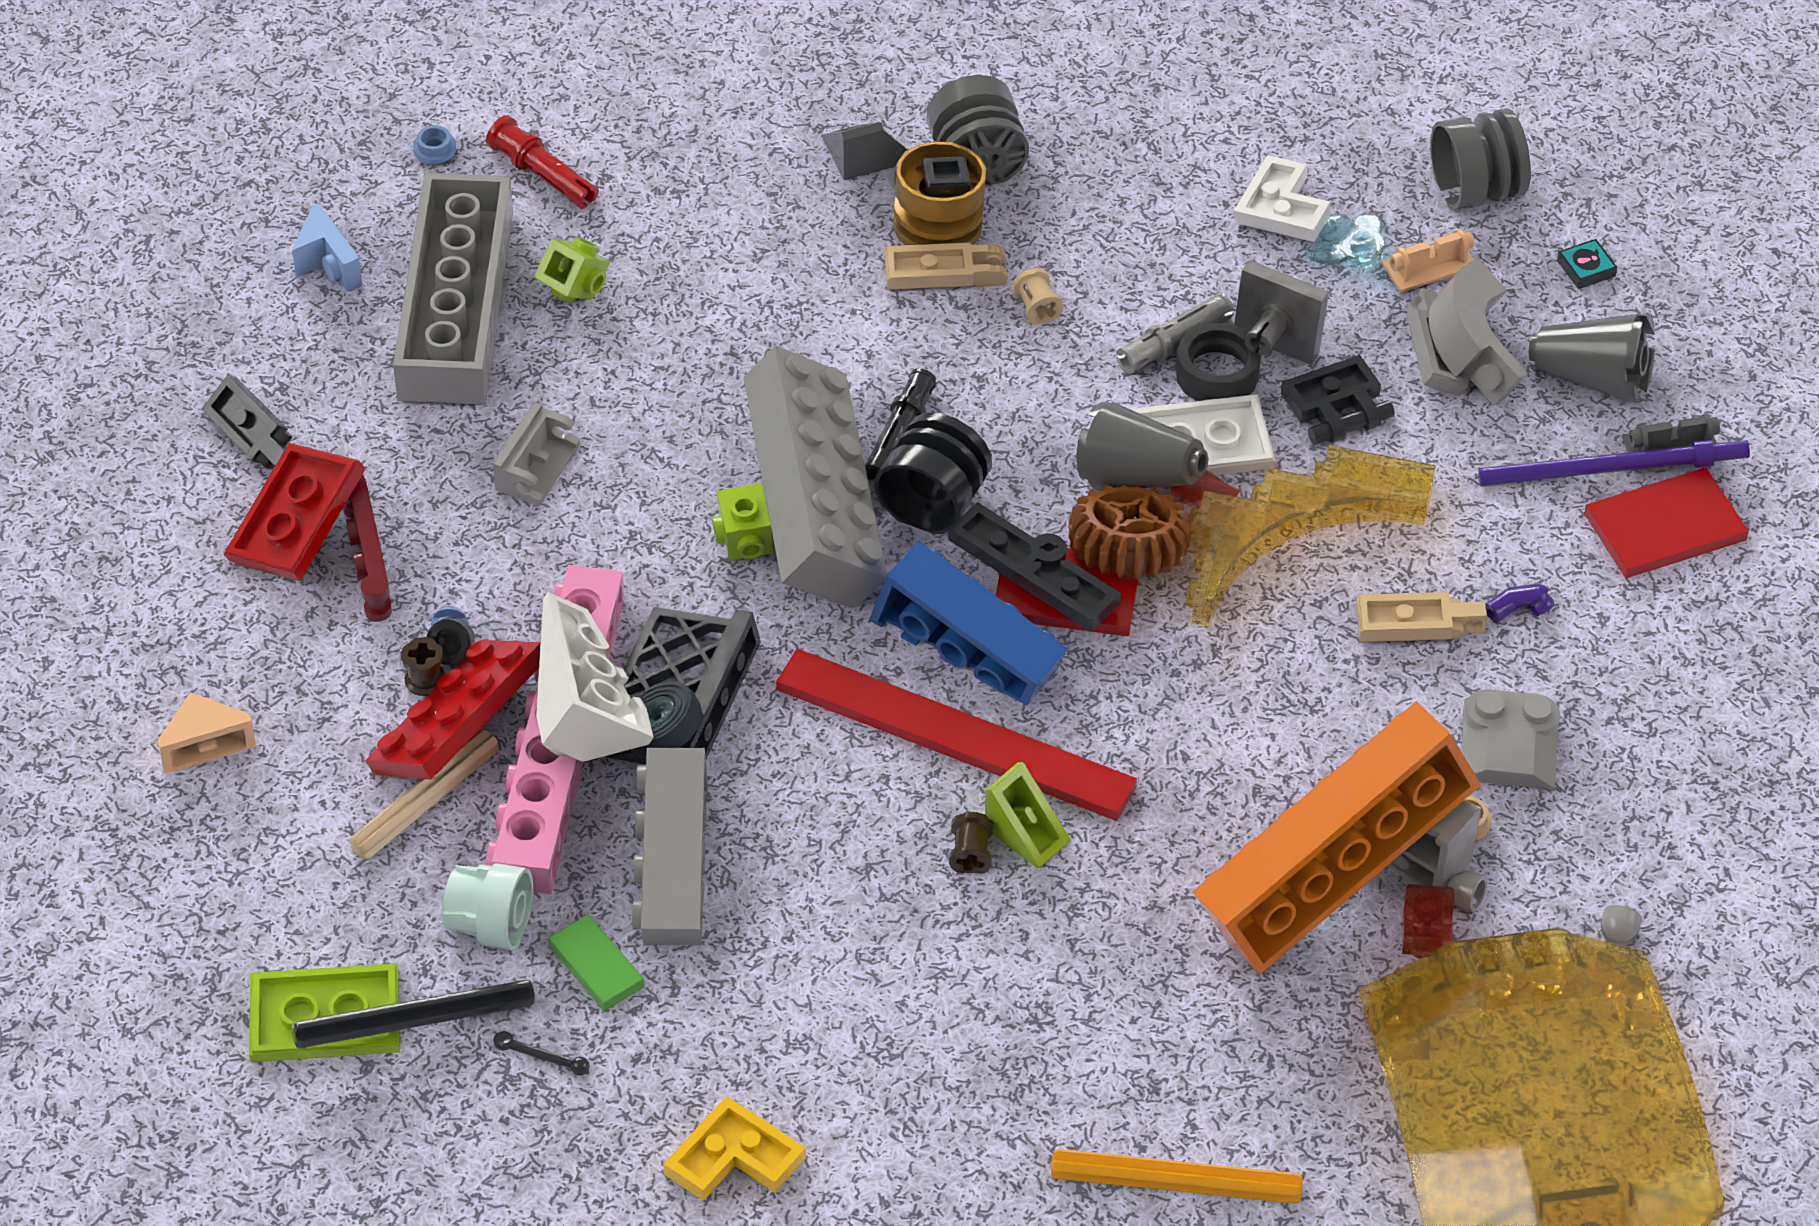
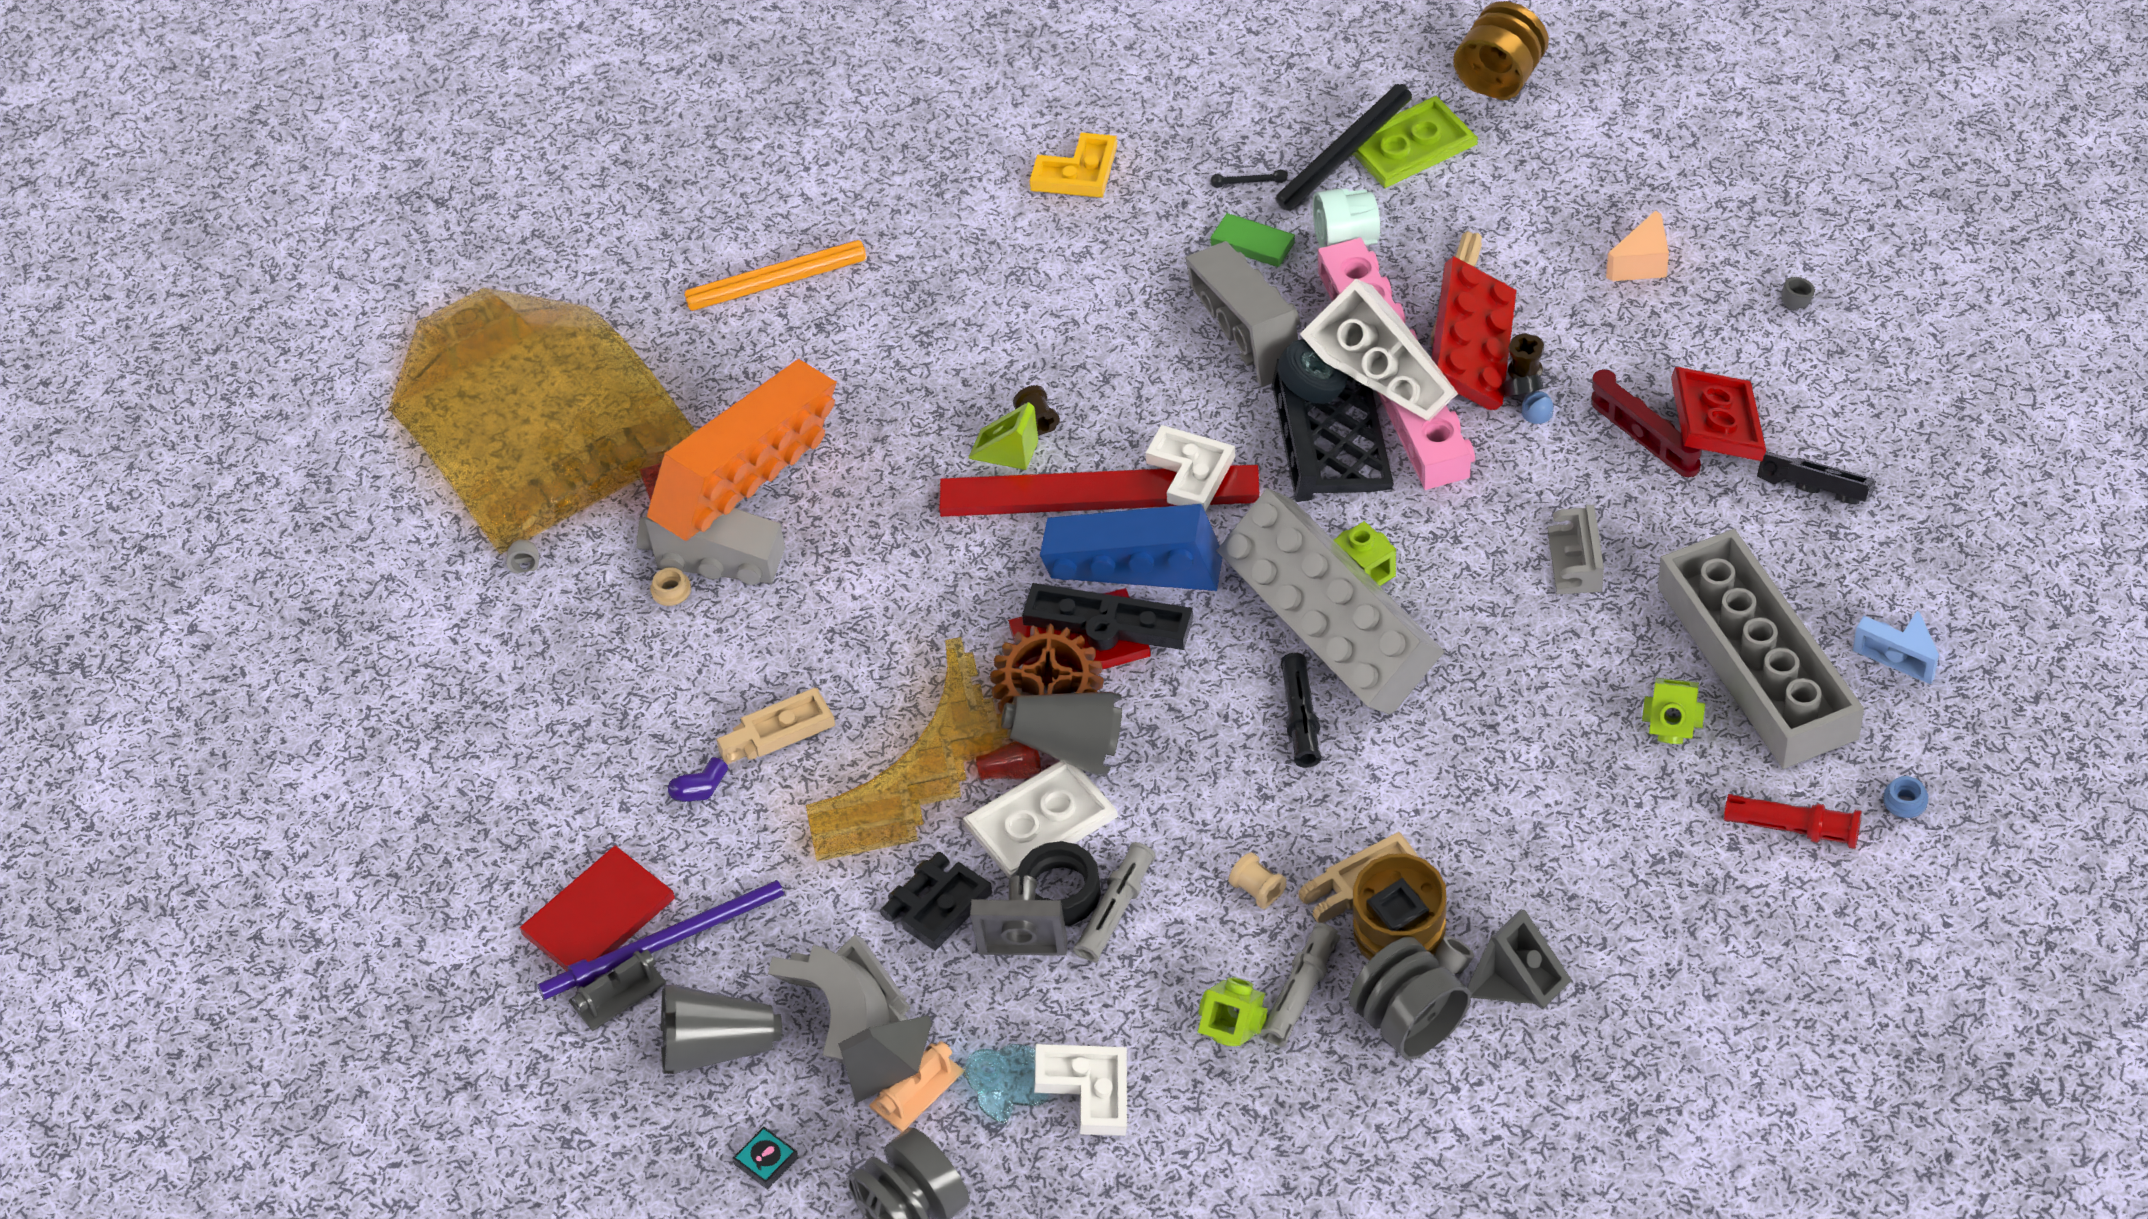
camera: 160 degrees right, 0 degrees up
(84, 620) = (1797, 293): none -> dark grey hinge
(135, 1041) = (1501, 50): none -> pearl gold wheel
(843, 685) = (1196, 459): none -> white plate
(933, 472) = (1234, 646): black wheel -> none
(1040, 215) = (1307, 970): none -> light grey pin
(1129, 192) = (1220, 1018): none -> lime brick
(1448, 244) = (884, 1055): none -> dark grey slope
(1511, 738) = (660, 660): light grey slope -> none

